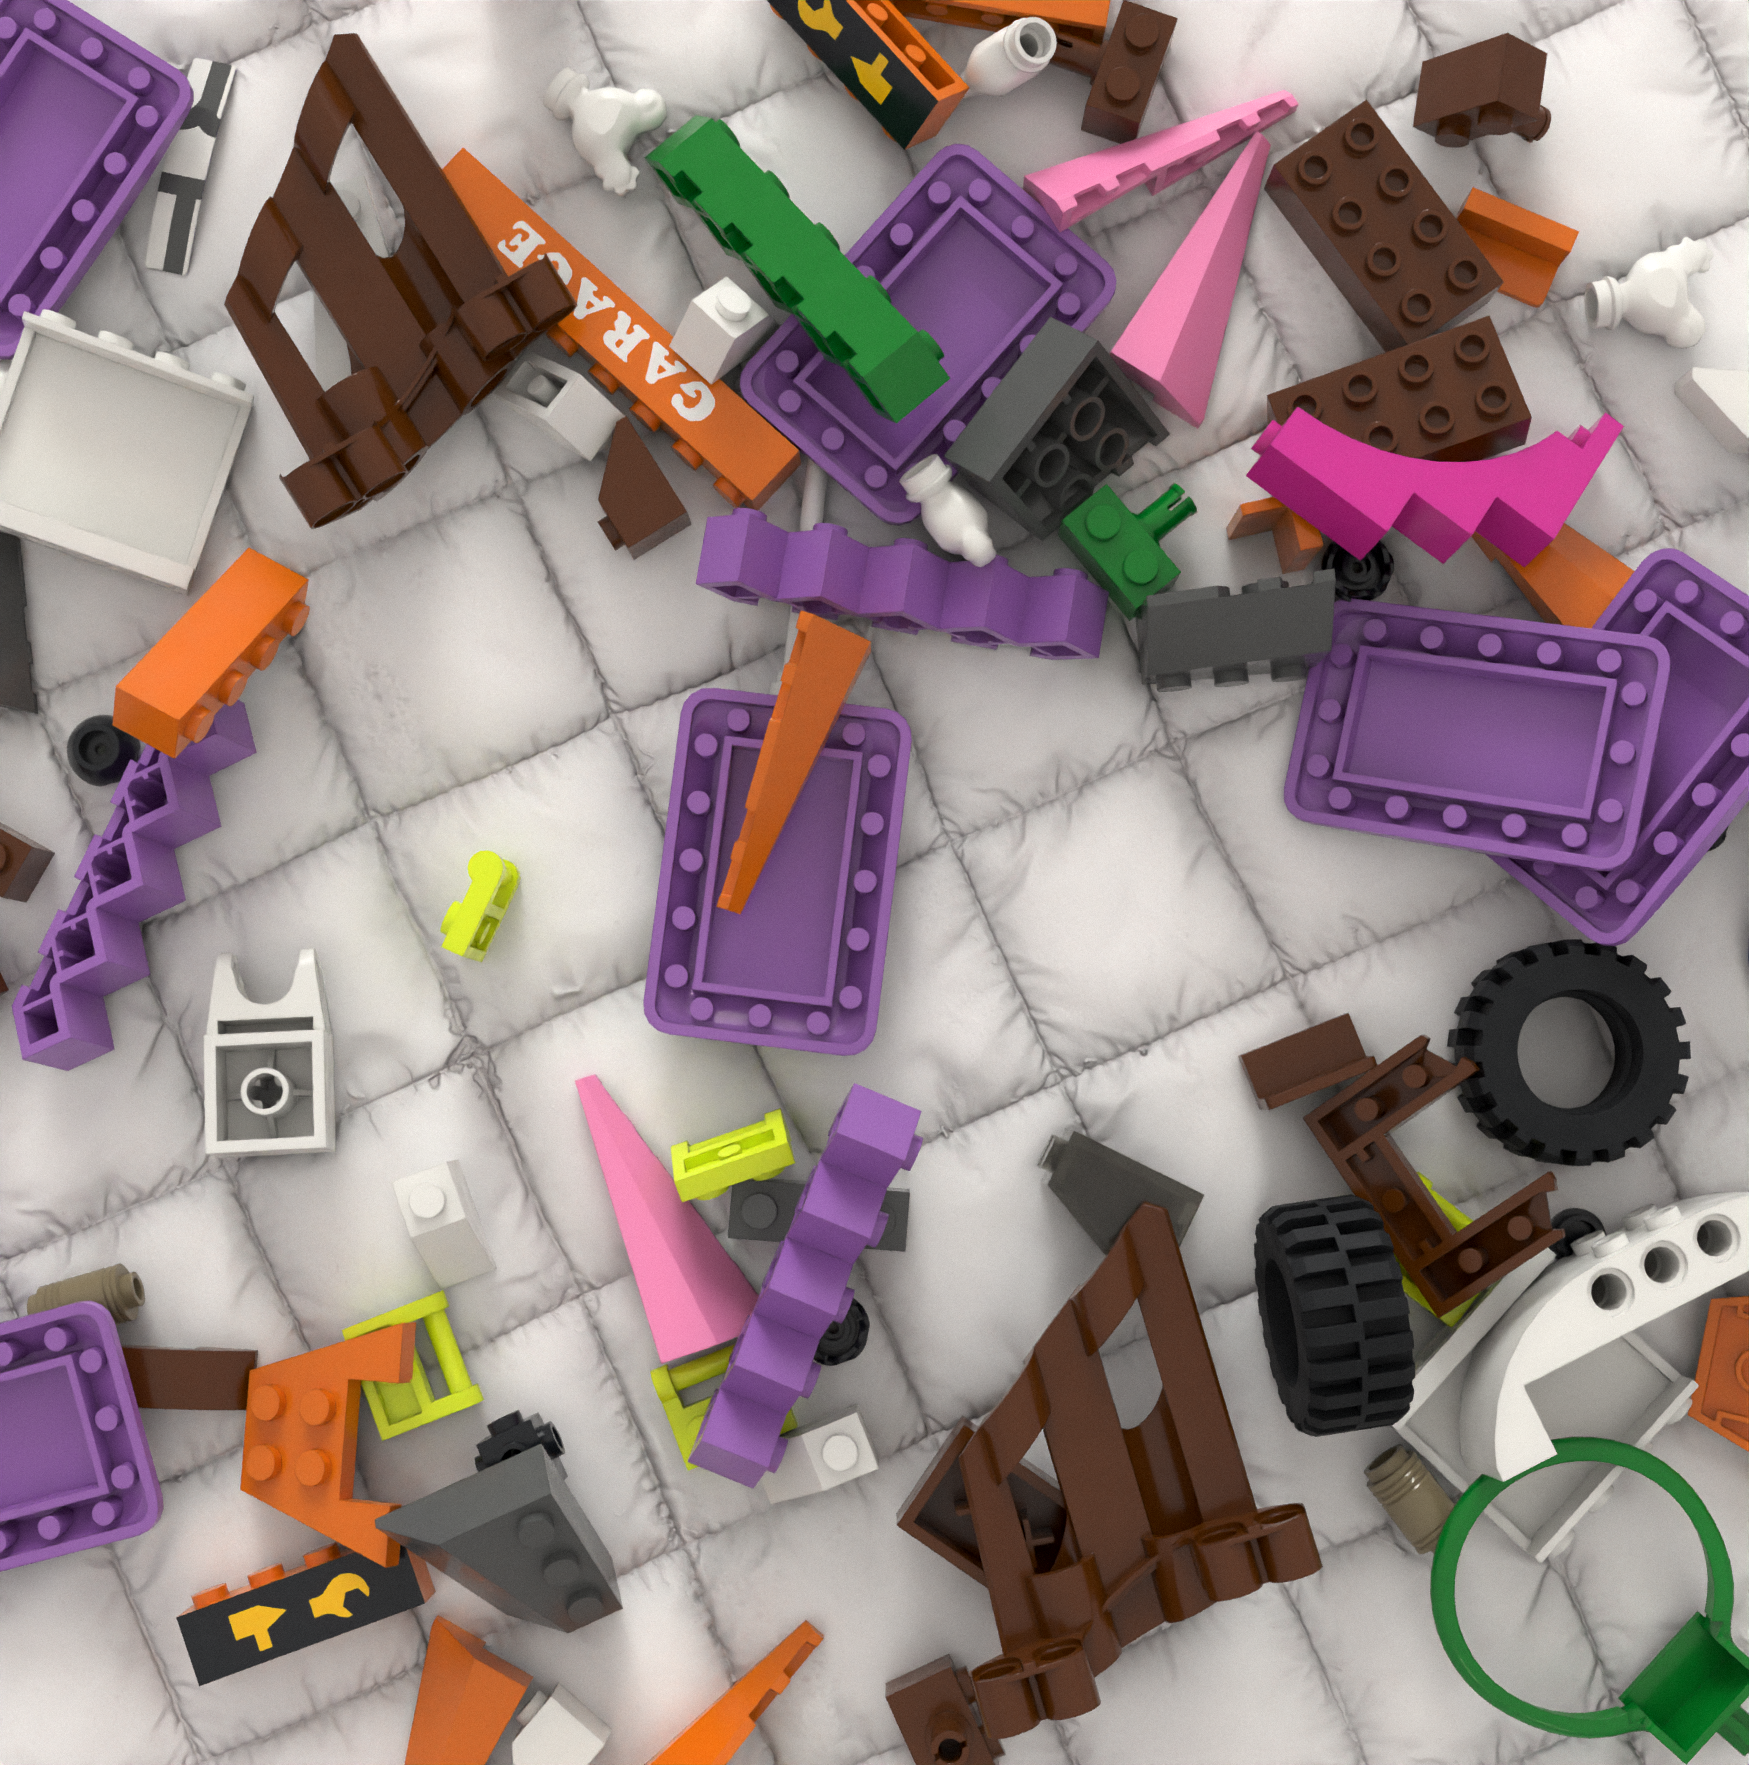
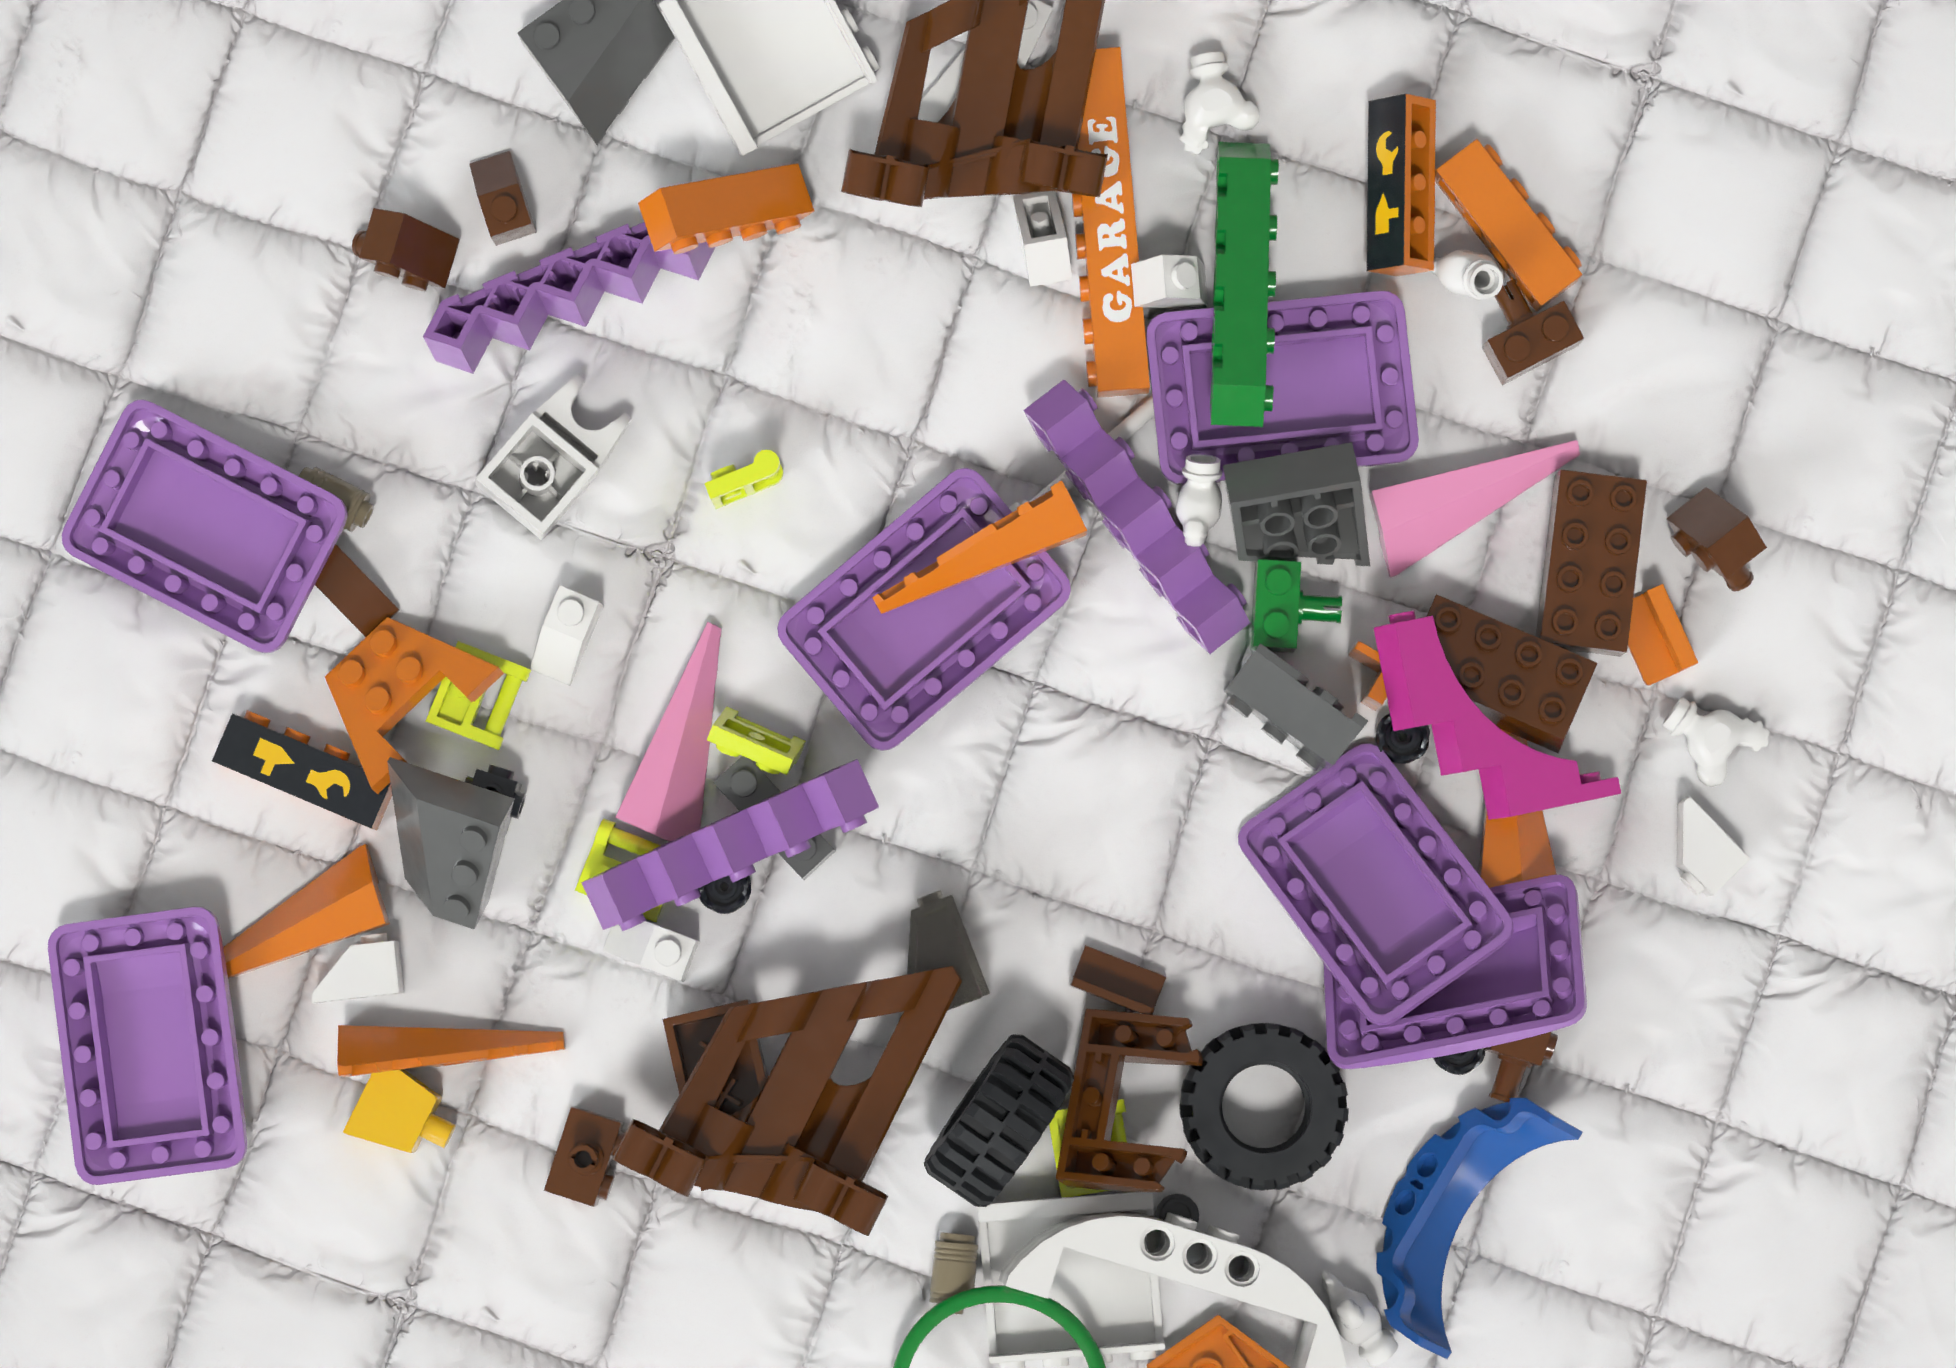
camera: 40 degrees right, 0 degrees up
(83, 747) = (617, 213): black plate -> none
(637, 496) = (1038, 329): reddish brown slope -> none
(1158, 160) = (1457, 387): bright pink wedge -> none

